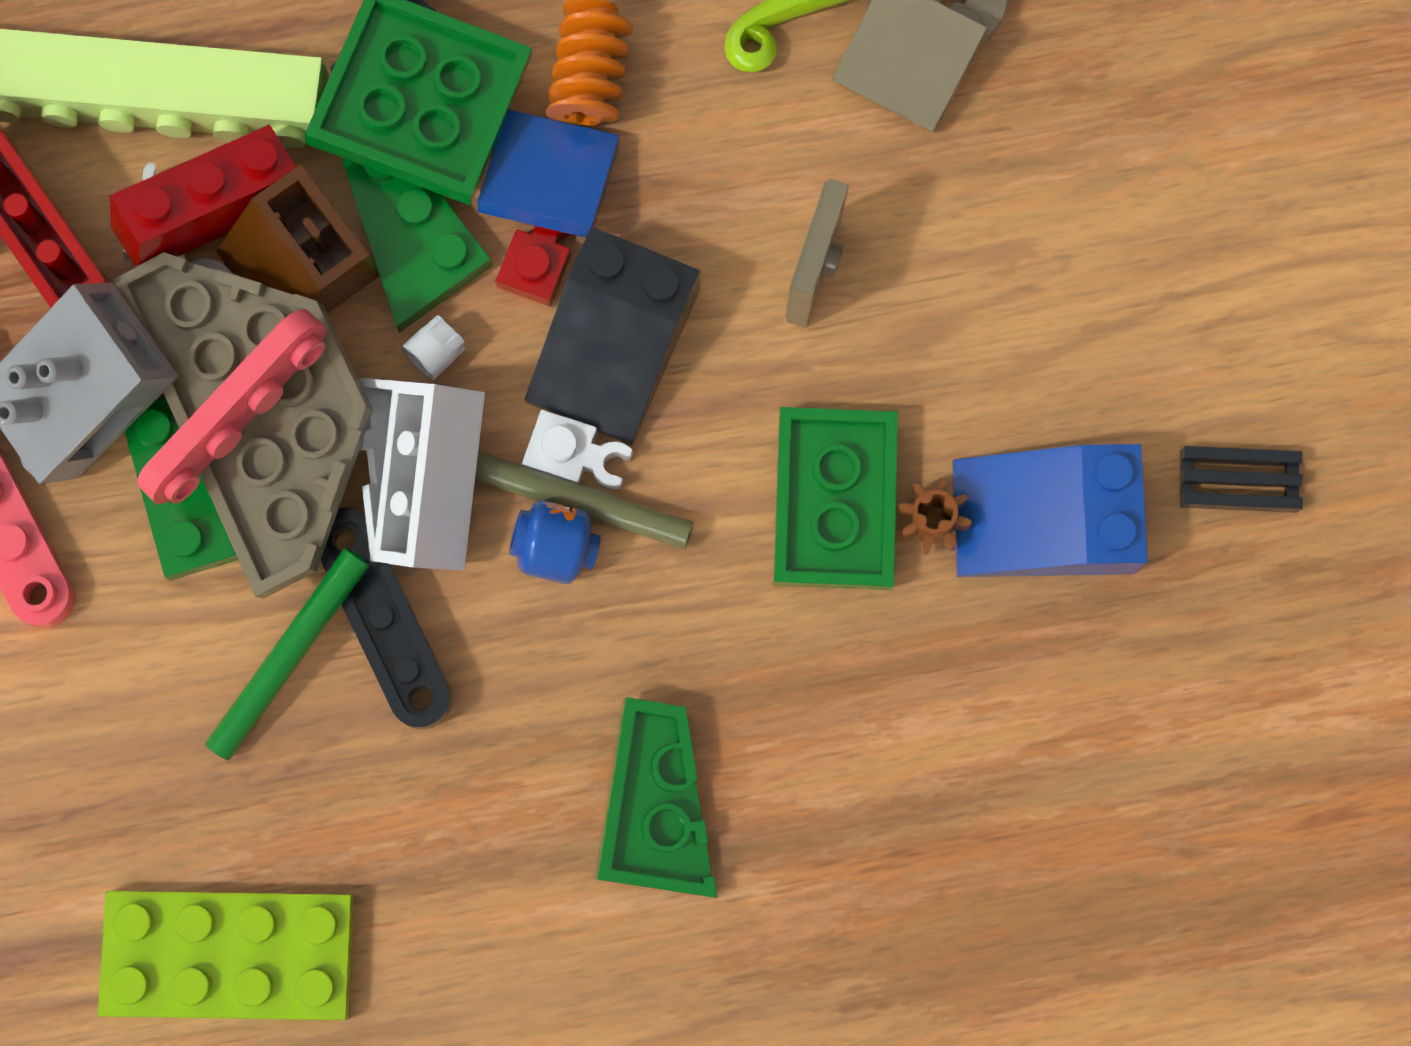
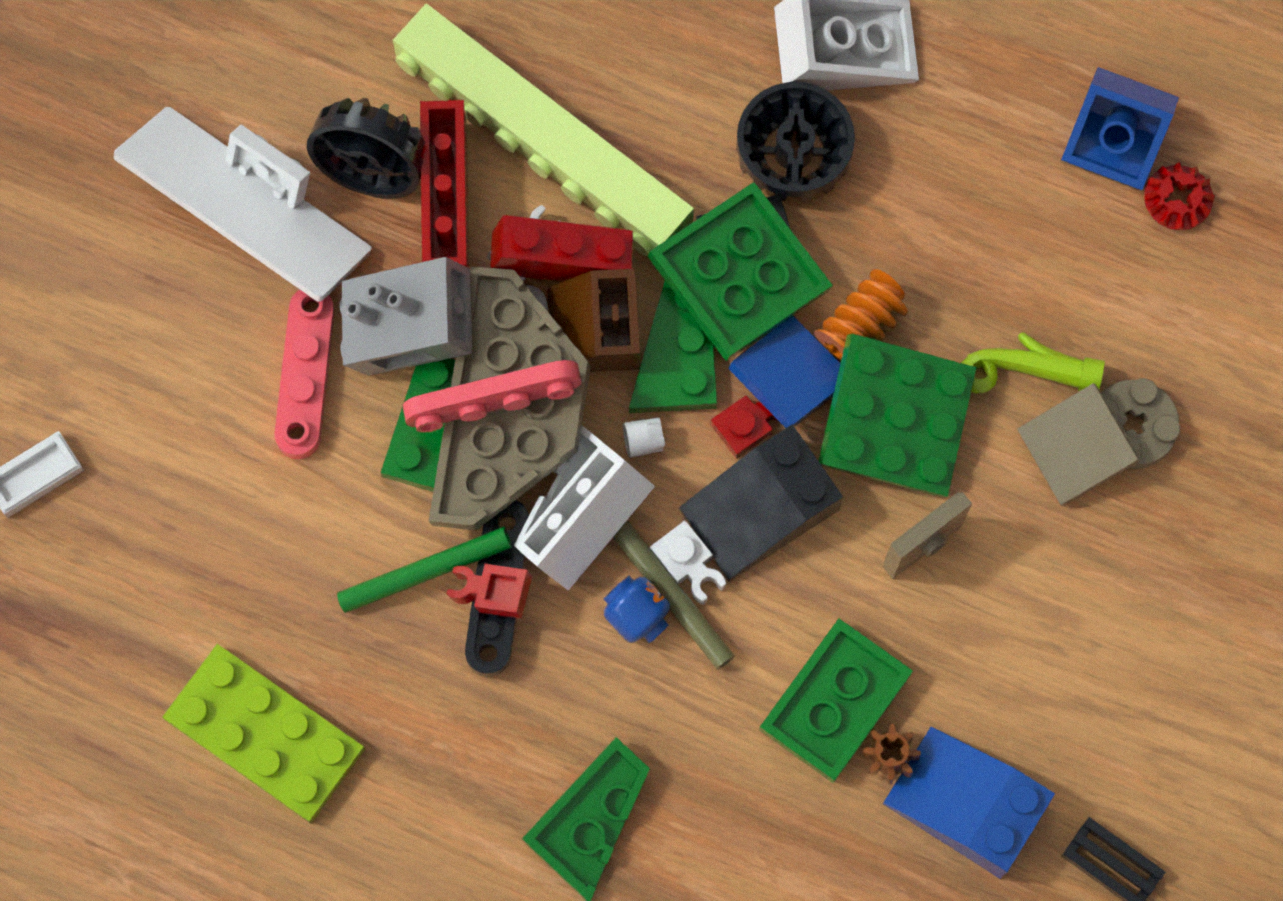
camera: 35 degrees right, 5 degrees down
(384, 624) = (496, 592): none -> plate
(696, 145) = (897, 415): none -> green plate

